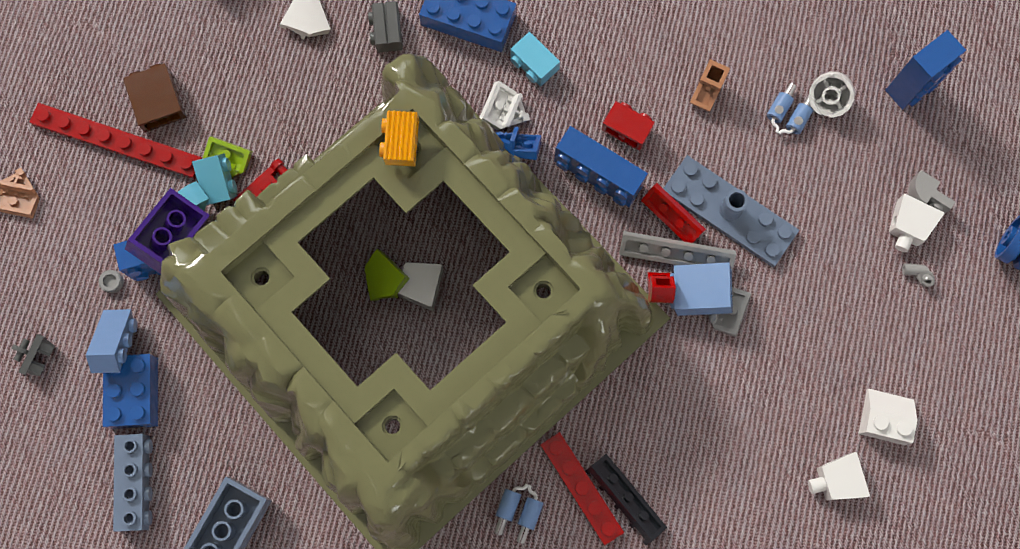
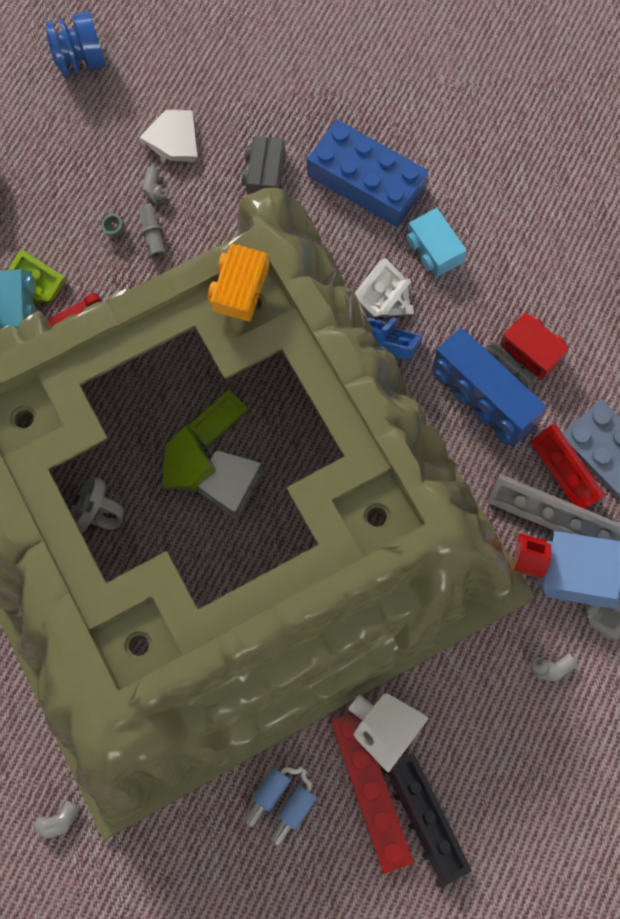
camera: 15 degrees right, 5 degrees down
(273, 102) = (109, 229): none -> sand green hinge
(300, 63) = (151, 188): none -> light grey arm
(309, 98) = (151, 231): none -> light grey axle
(321, 325) = (93, 506): none -> white tile
(399, 236) = (218, 419): none -> lime tile
(582, 440) = (386, 727): none -> white torso
(613, 143) = (514, 366): none -> dark grey axle
(694, 369) = (553, 671): none -> light grey arm

